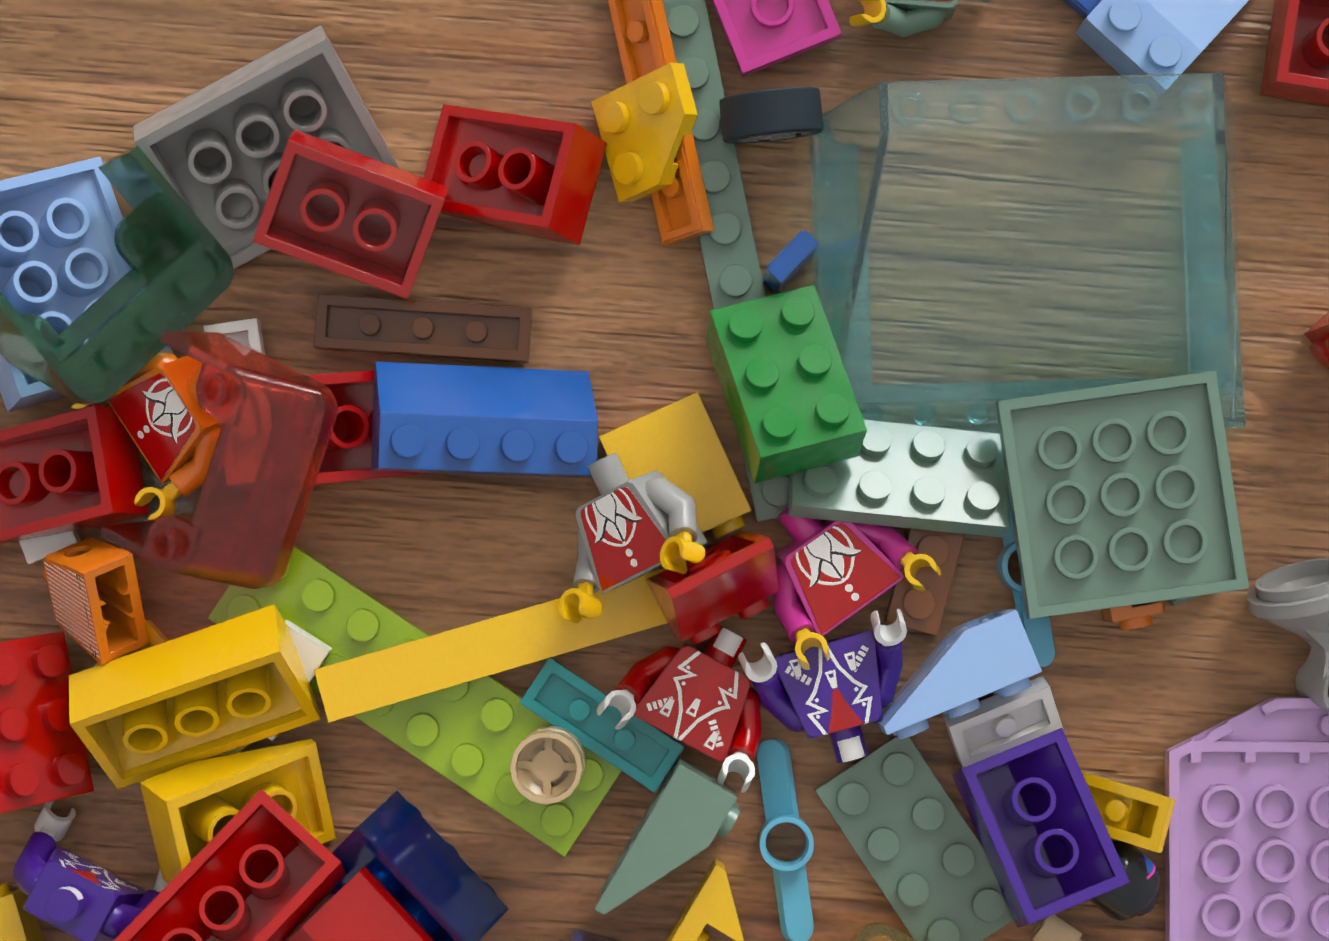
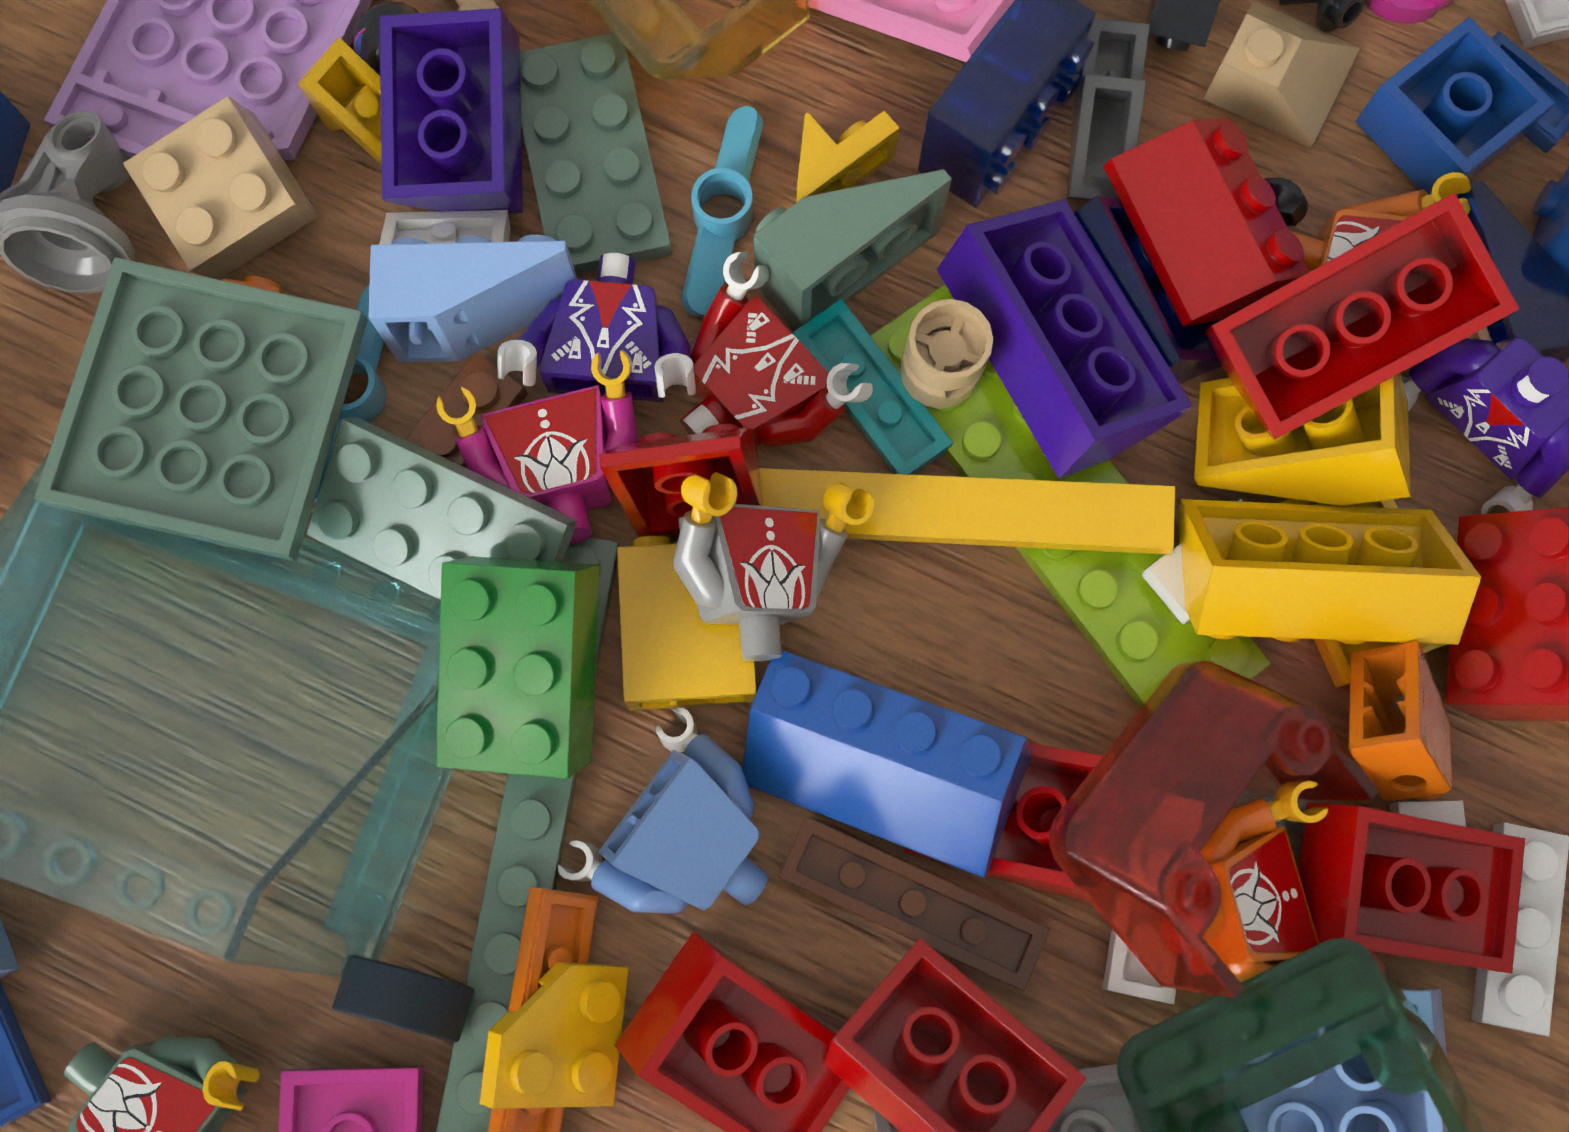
camera: 165 degrees left, 10 degrees down
(460, 818) = (1063, 336): none -> dark purple slope
(616, 311) = (681, 835): none -> medium blue torso
(790, 261) = (455, 810): blue tile -> none
(1200, 688) = (220, 189): none -> tan brick

